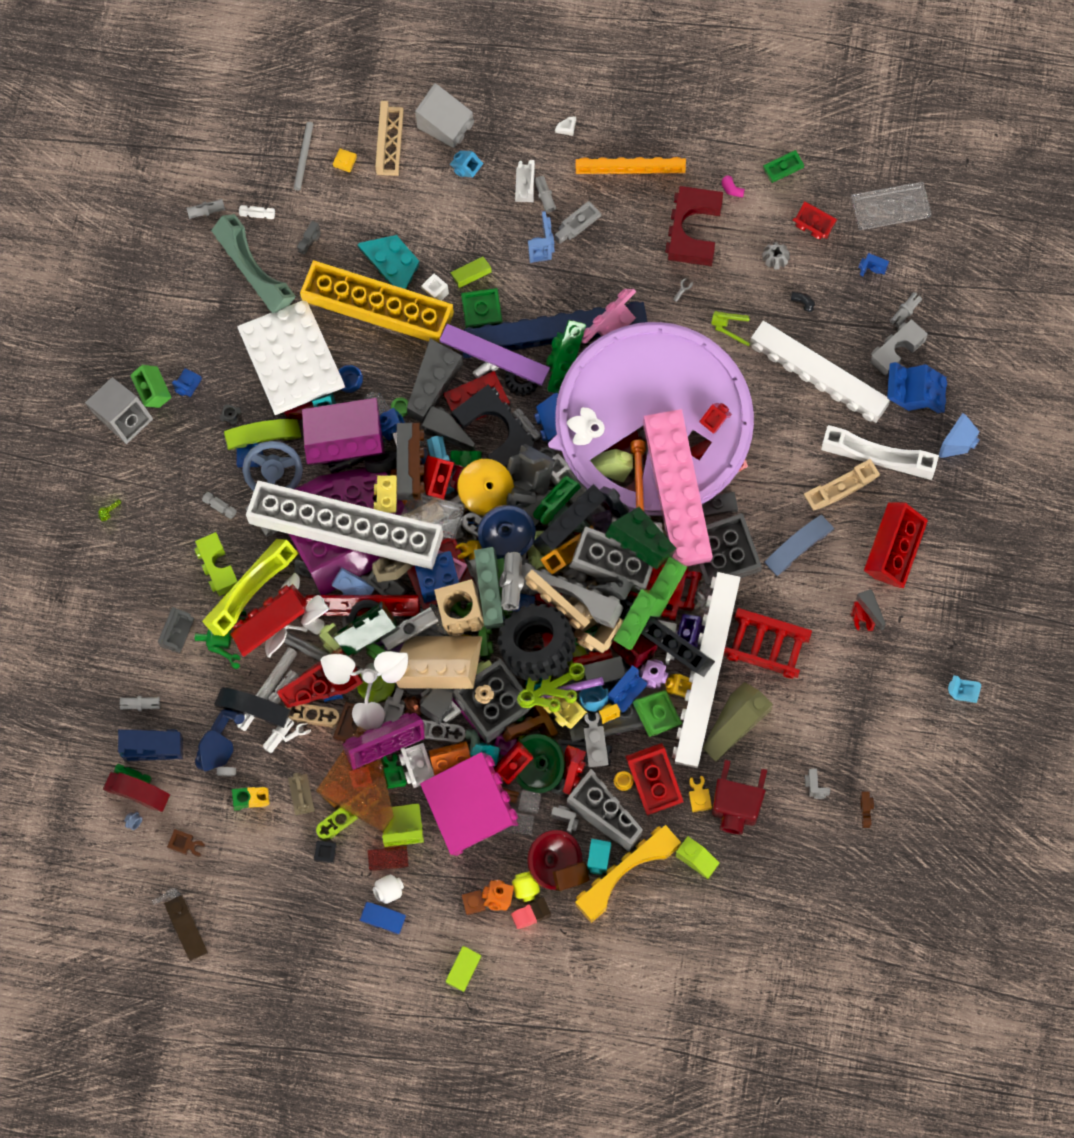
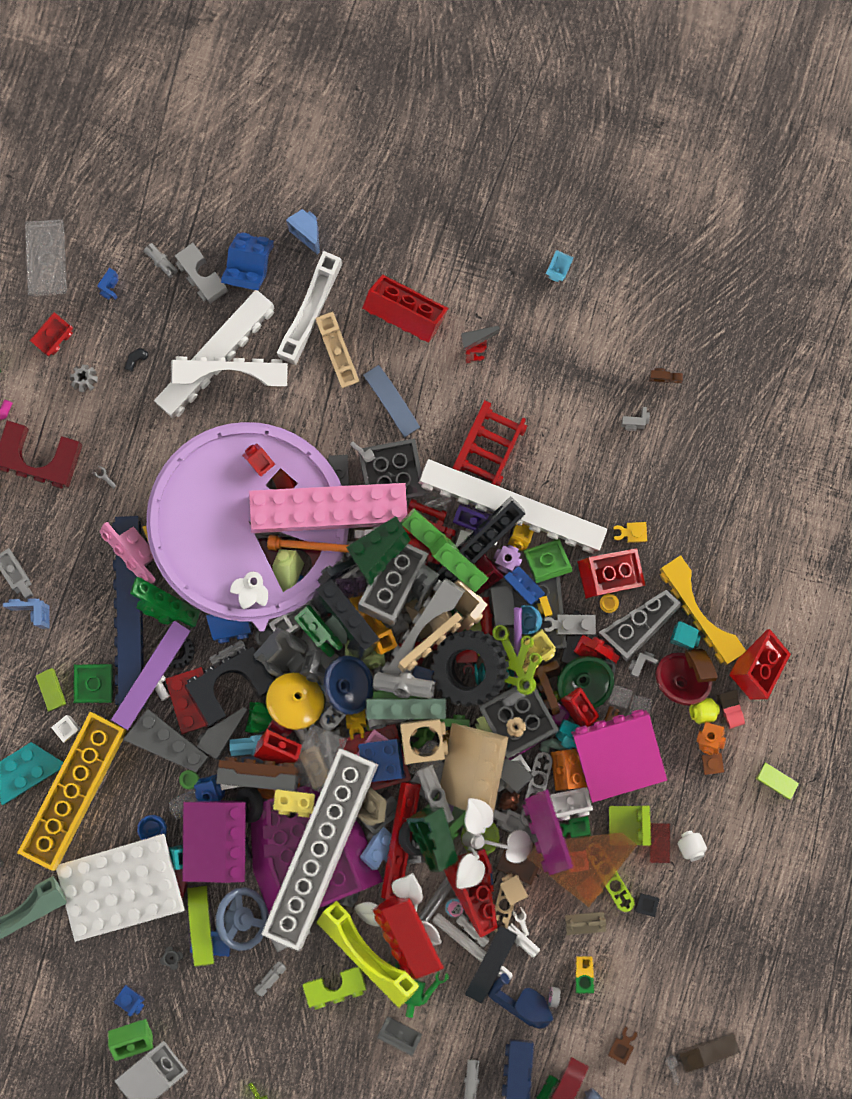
camera: 80 degrees left, 10 degrees up
(302, 665) = (453, 908): none -> tile
(326, 716) = (513, 888): none -> tan brick
(330, 644) = (435, 878): yellowish green bracket -> none
(382, 917) = (719, 854): blue slope -> none
(578, 936) = (760, 666): none -> red slope
(697, 857) = (693, 542): lime slope -> none
(721, 319) = (143, 442): lime plant -> none
(736, 522) = (367, 455): none -> light grey hand
(737, 803) = (646, 496): dark red piece -> none
(740, 714) = (558, 483): olive wedge -> none
(806, 424) = (188, 371): none -> white arch

